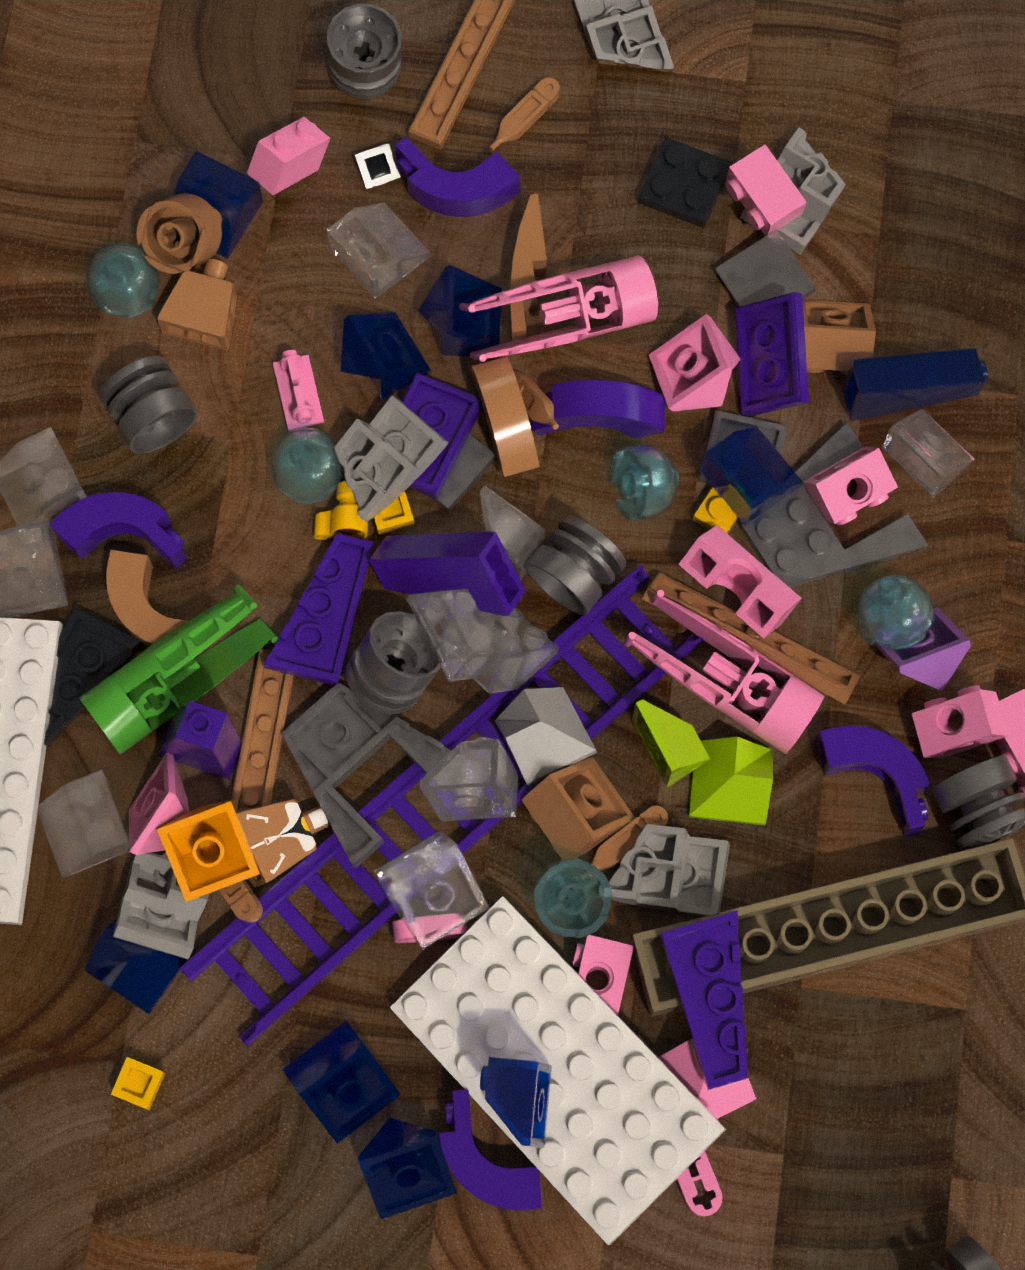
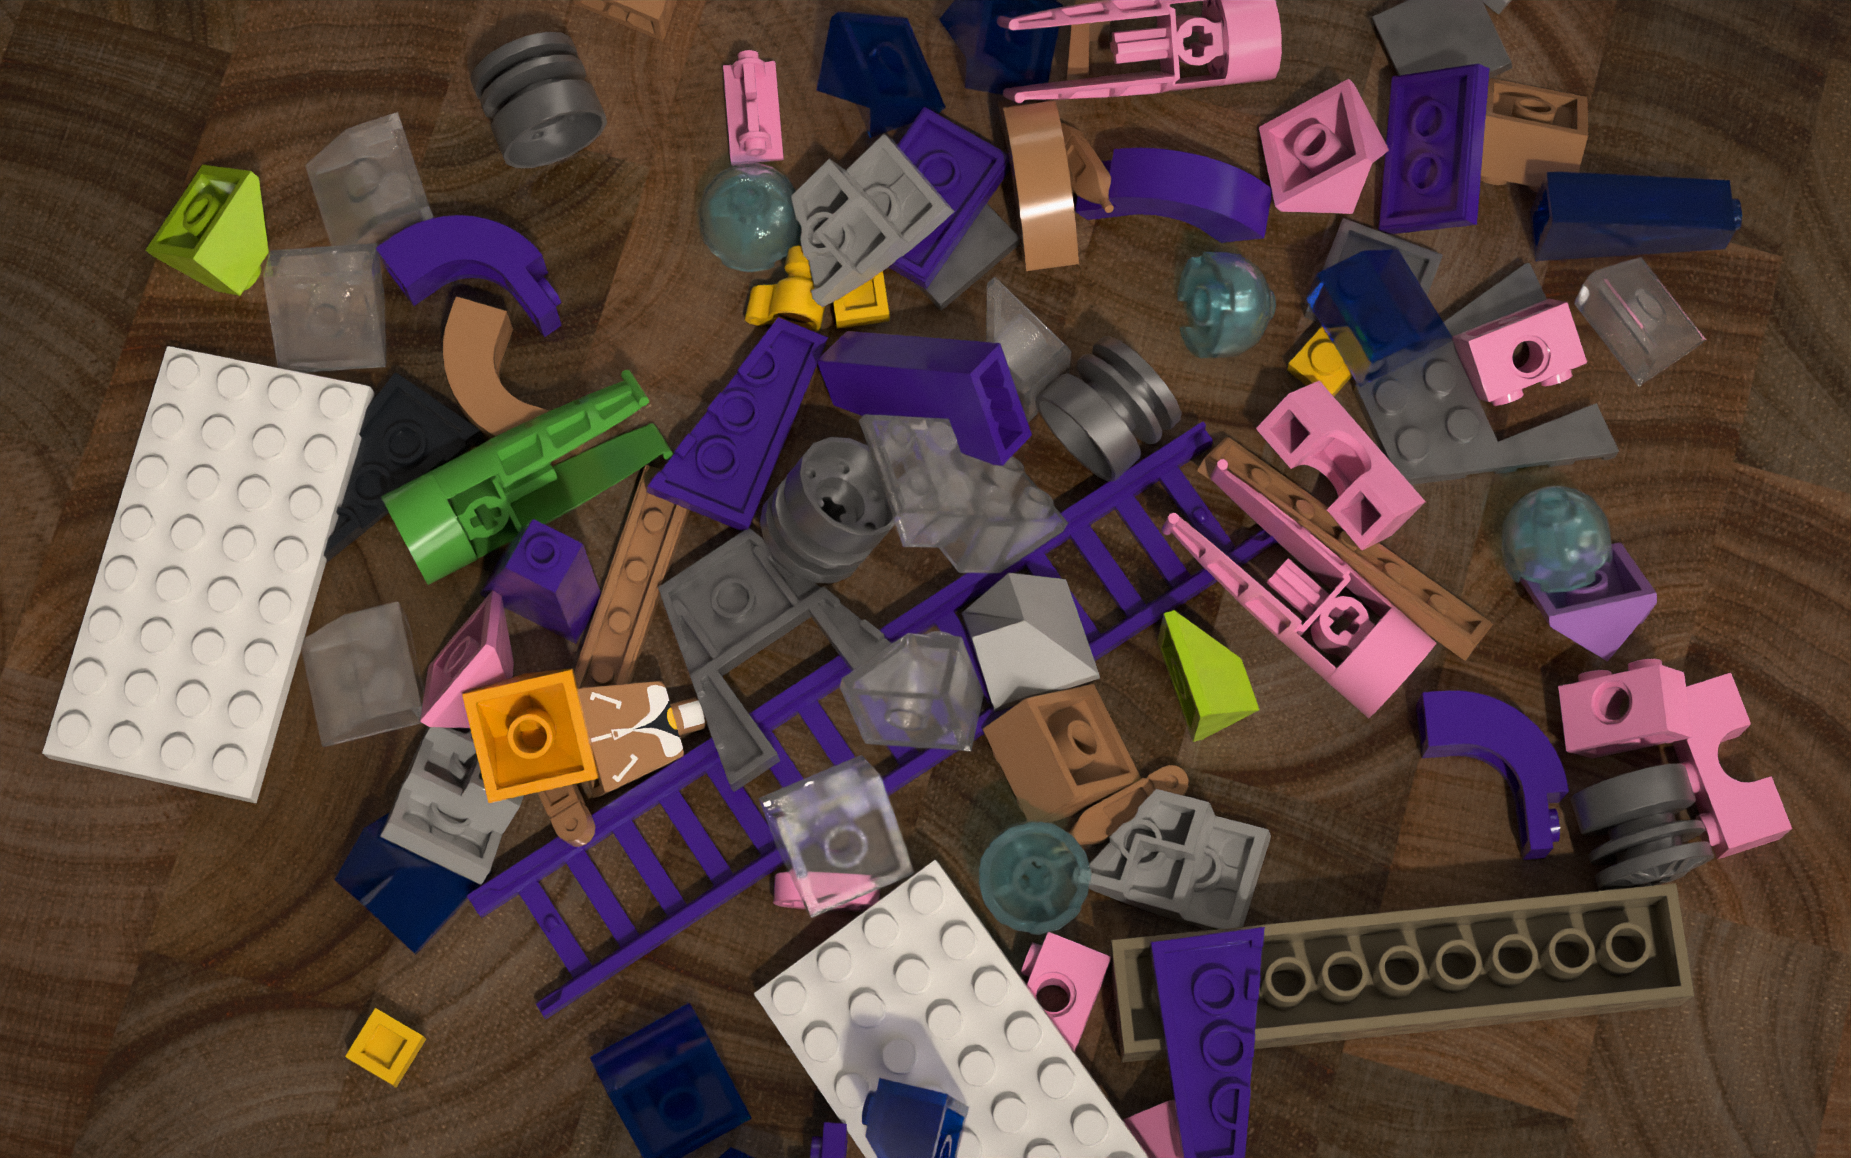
camera: 10 degrees right, 0 degrees up
(733, 782) = (1288, 748): lime slope -> none

